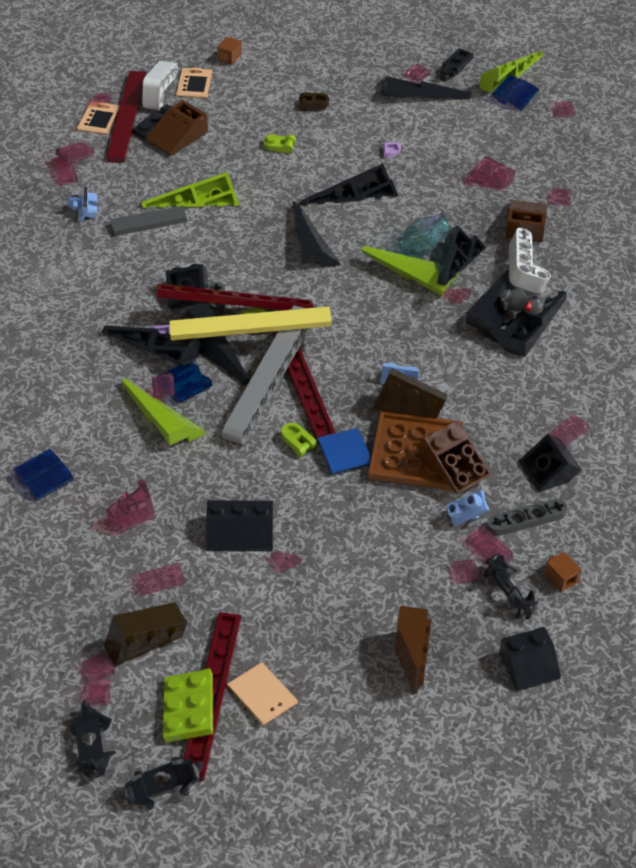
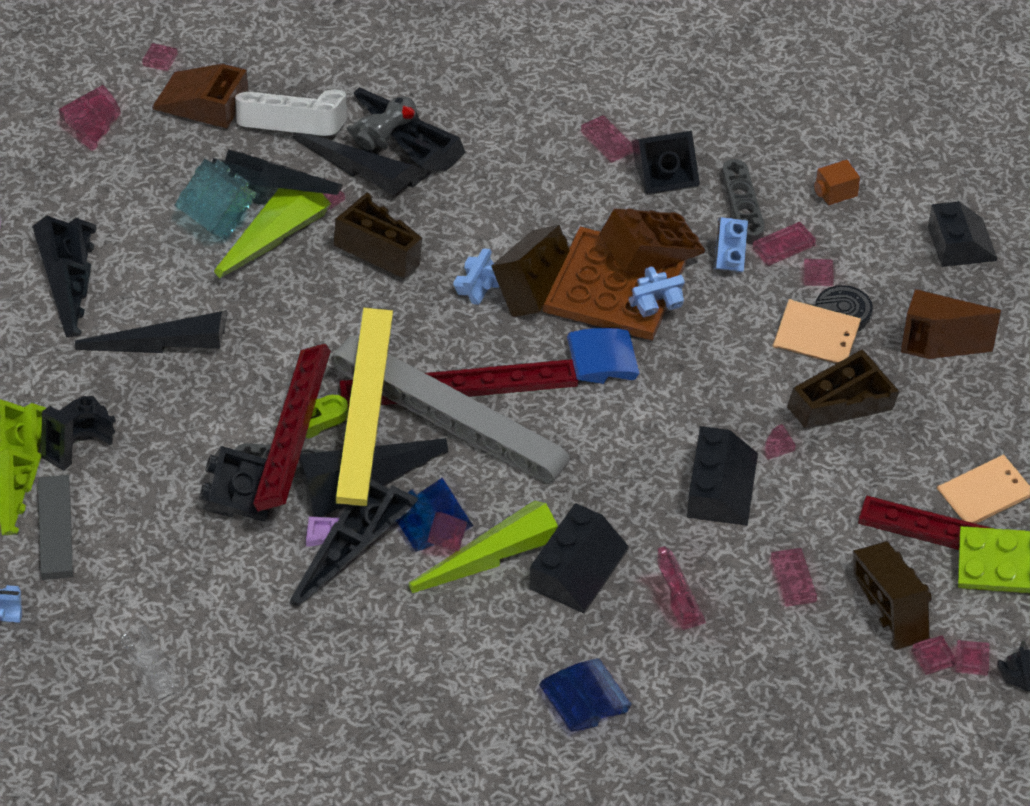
camera: 80 degrees left, 0 degrees up
(153, 455) = (577, 559): none -> black slope
(218, 205) = (78, 419): none -> black tile
(293, 433) = (562, 402): lime plate -> none
(333, 587) = (843, 393): none -> dark brown wedge
(397, 573) = (816, 332): none -> light nougat container
(403, 472) = (657, 287): none -> light blue hips
(419, 316) = (377, 237): none -> dark brown wedge
(430, 589) = (847, 301): none -> tile
(500, 572) = (832, 236): black piece -> none

